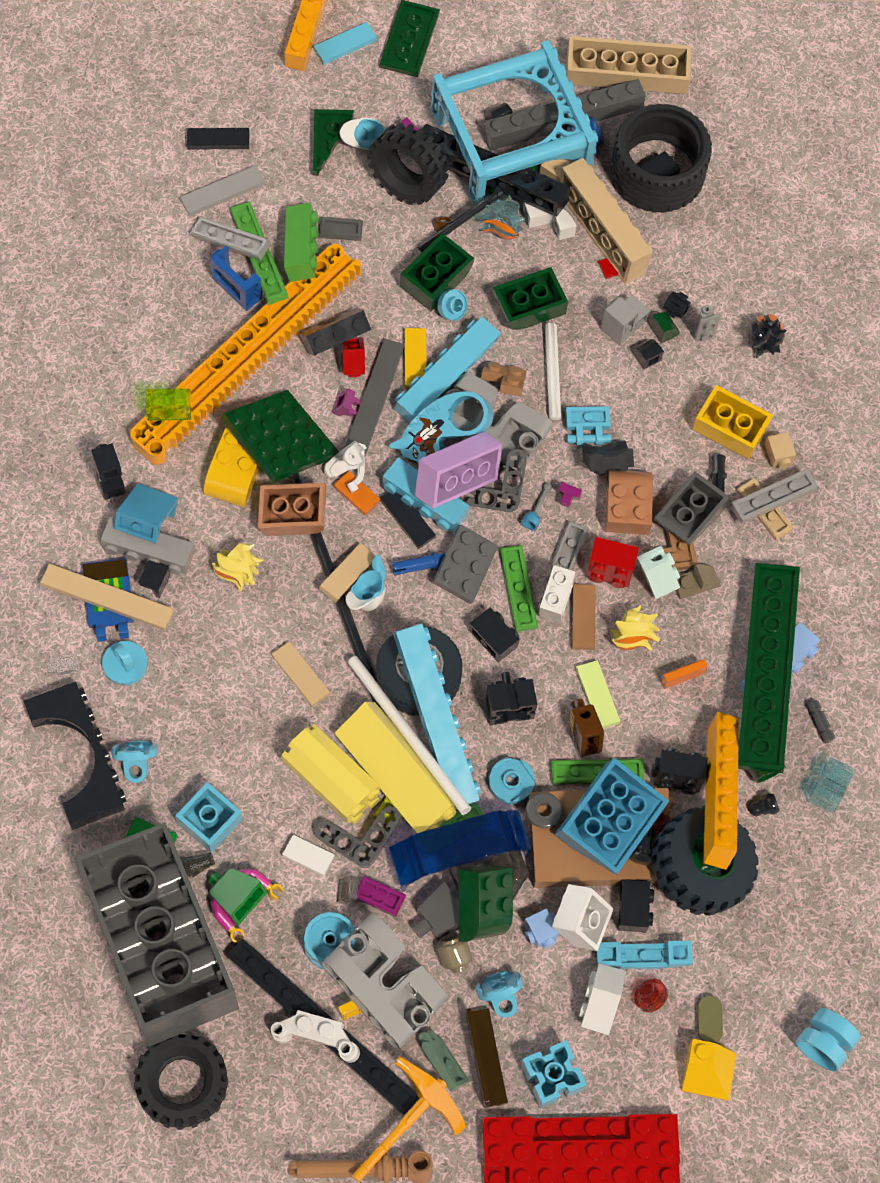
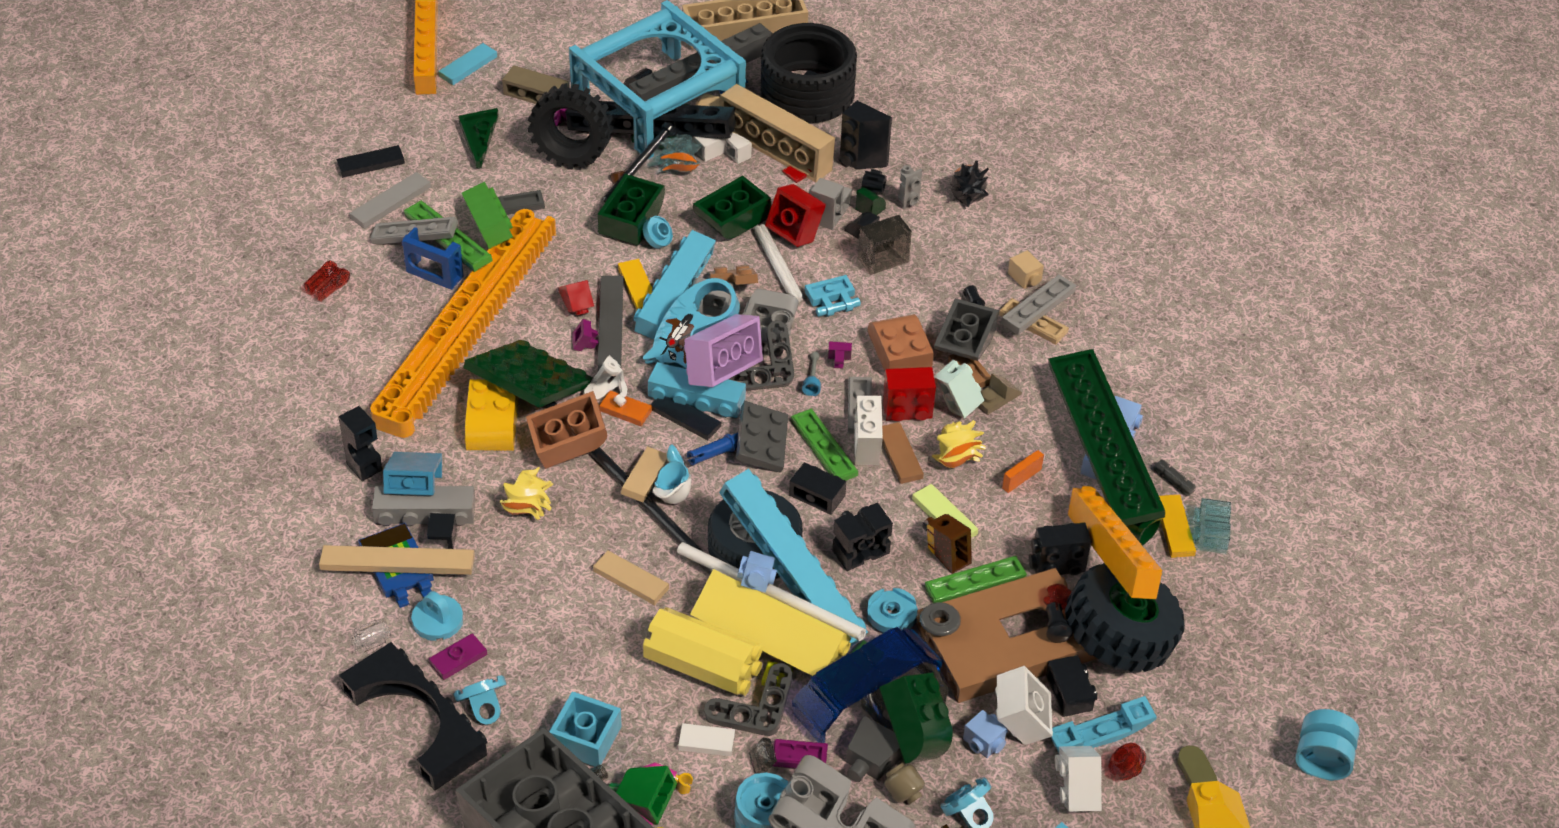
camera: 15 degrees left, 20 degrees down
(130, 707) = (458, 656): none -> magenta plate
(137, 270) = (326, 280): none -> clear red piece
(168, 404) = (403, 371): clear neon green brick -> none
(328, 336) = (550, 278): black arch -> none
(361, 132) = (512, 120): medium azure hair -> none
(398, 94) = (528, 84): none -> dark tan brick
(399, 718) = (757, 571): none -> light blue brick
(409, 38) = (529, 45): dark green tile -> none
(584, 327) = (795, 215): none -> red brick
(601, 459) = (860, 314): black brick -> none
(612, 816) = (1012, 601): dark azure slope -> none
(655, 385) = (884, 244): none -> clear smoke piece
(683, 255) = (865, 137): none -> black slope
(732, 422) = (970, 256): yellow brick -> none
(766, 805) = (1162, 558): black piece -> none
(799, 772) = (1176, 527): none -> yellow tile

